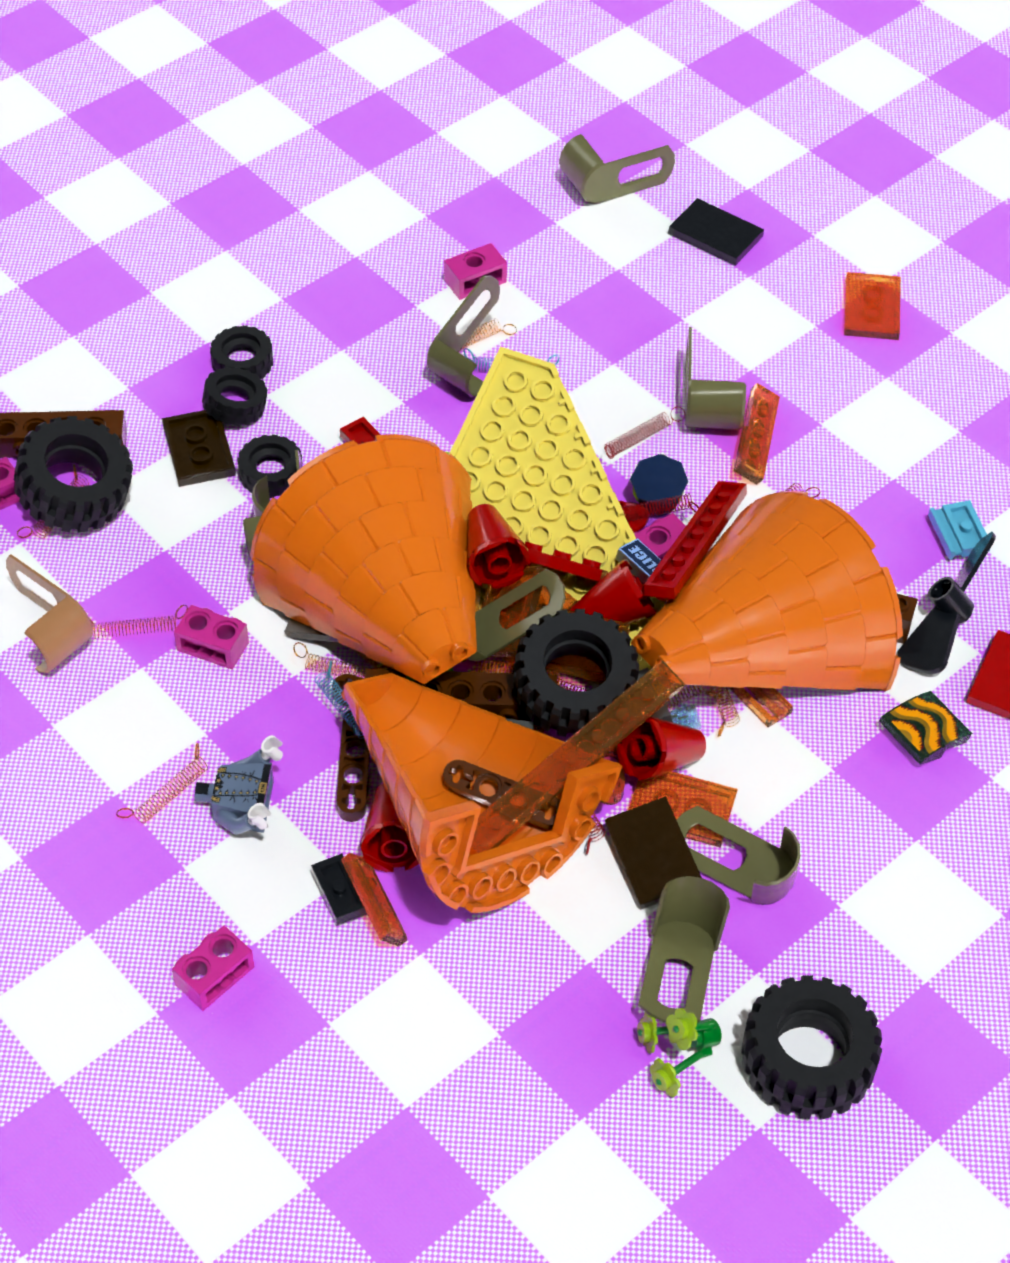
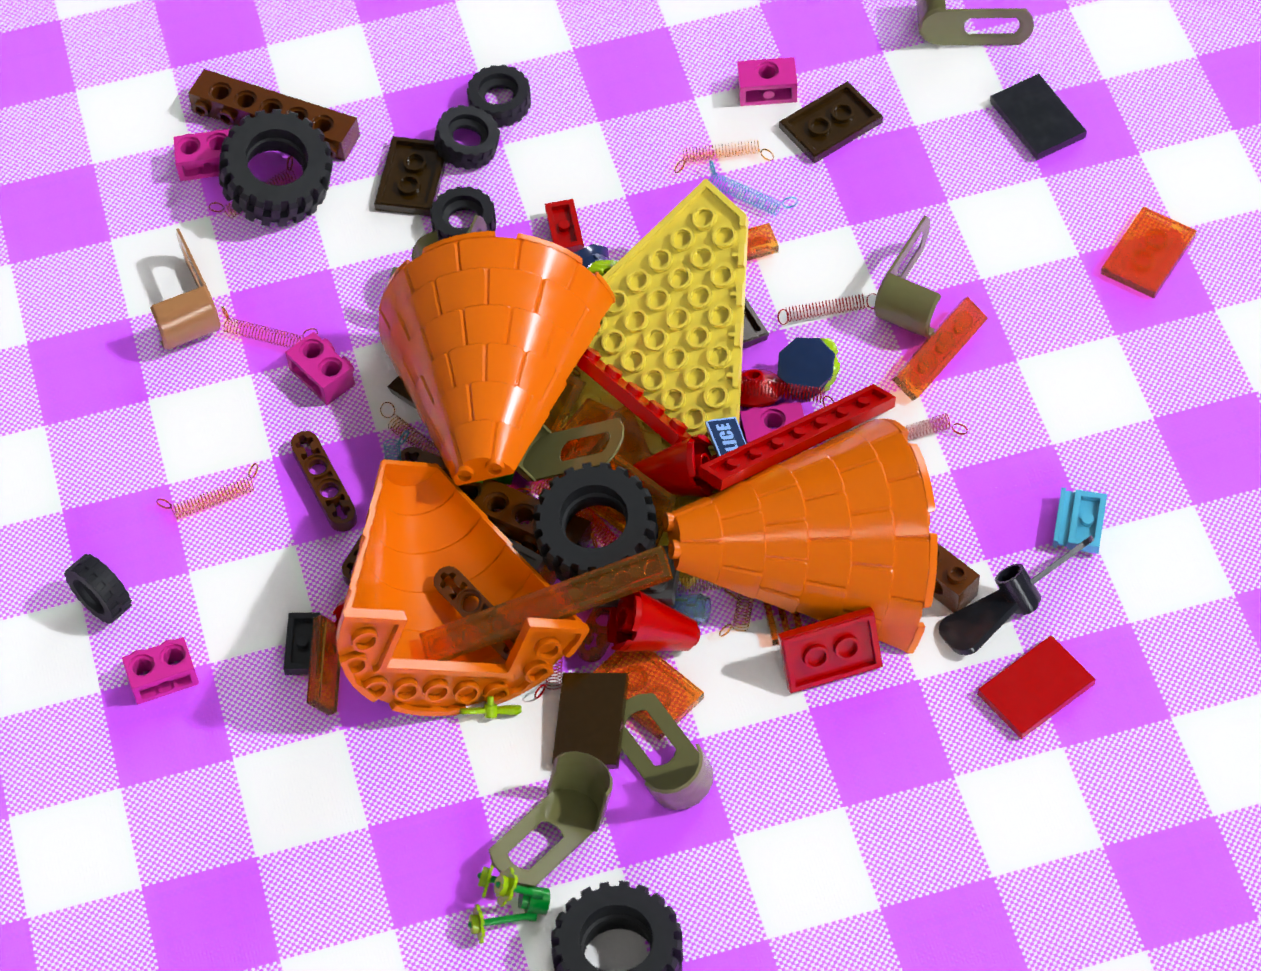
camera: 30 degrees right, 5 degrees up
(111, 912) = (98, 588): none -> black tyre
(243, 790) = (268, 523): sand blue torso -> none
(256, 715) = (324, 480): none -> reddish brown beam
(444, 354) = (686, 152): olive piece -> none
(494, 548) = (584, 379): red cone -> none
(546, 288) = (830, 122): none -> dark brown tile
(554, 880) = (491, 709): none -> lime piece
(830, 708) = (830, 650): none -> red tile
(925, 727) = (917, 703): slope -> none

